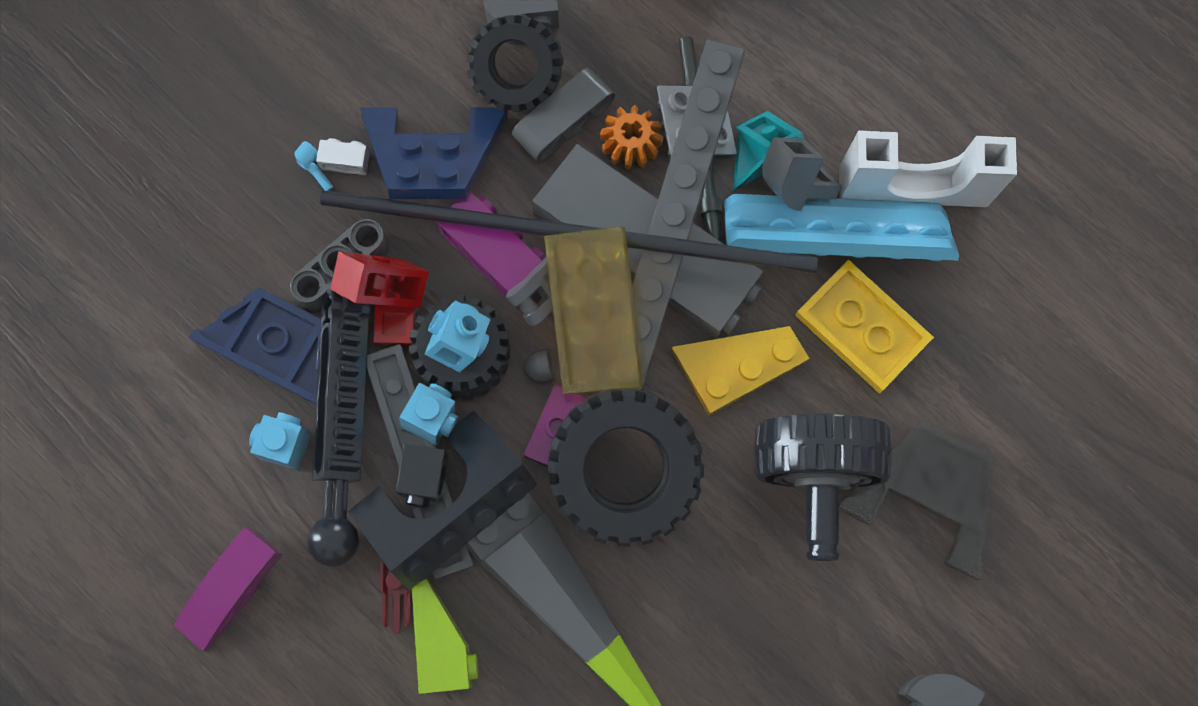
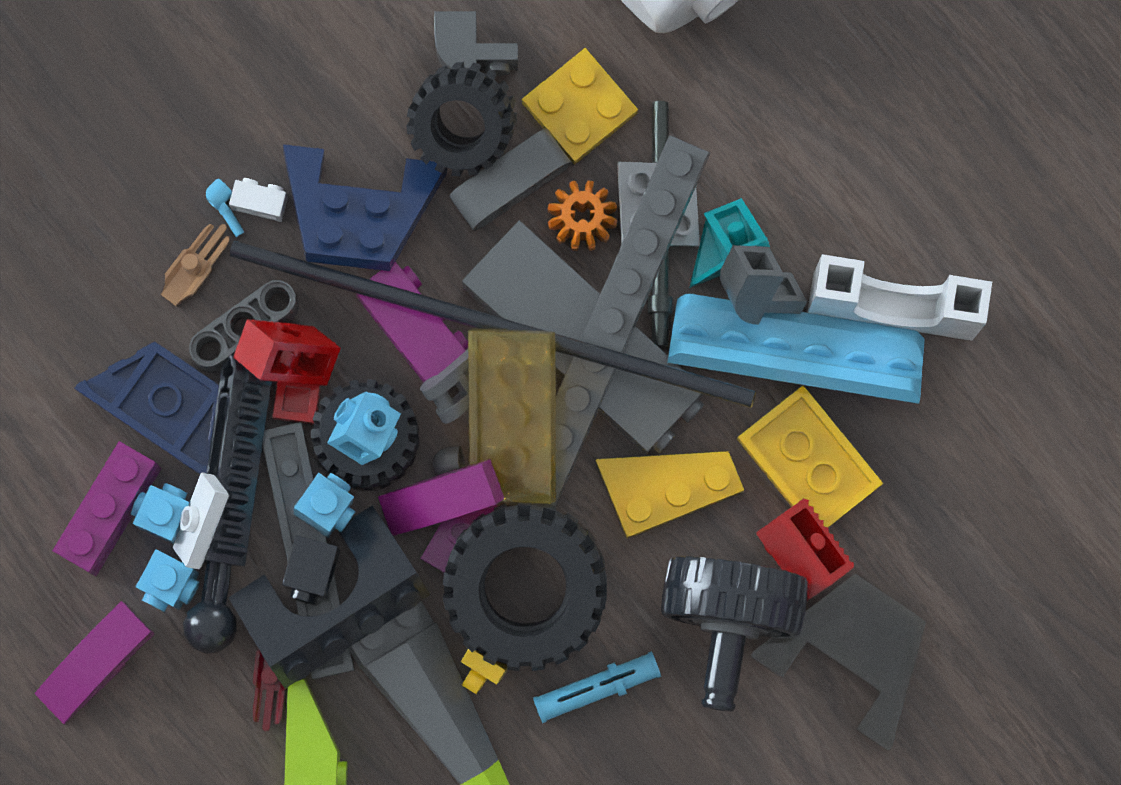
camera: 10 degrees right, 5 degrees up
(224, 444) = (106, 509): none -> magenta brick
(288, 223) = (192, 269): none -> medium nougat piece
(289, 504) = (167, 582): none -> medium azure brick
(313, 442) = (200, 521): none -> white plate
(536, 394) = (441, 498): none -> magenta slope
(592, 551) = (481, 671): none -> yellow tile
(617, 48) = (580, 105): none -> yellow plate
(743, 532) = (644, 668): none -> medium azure pin
(874, 395) = (805, 547): none -> red brick

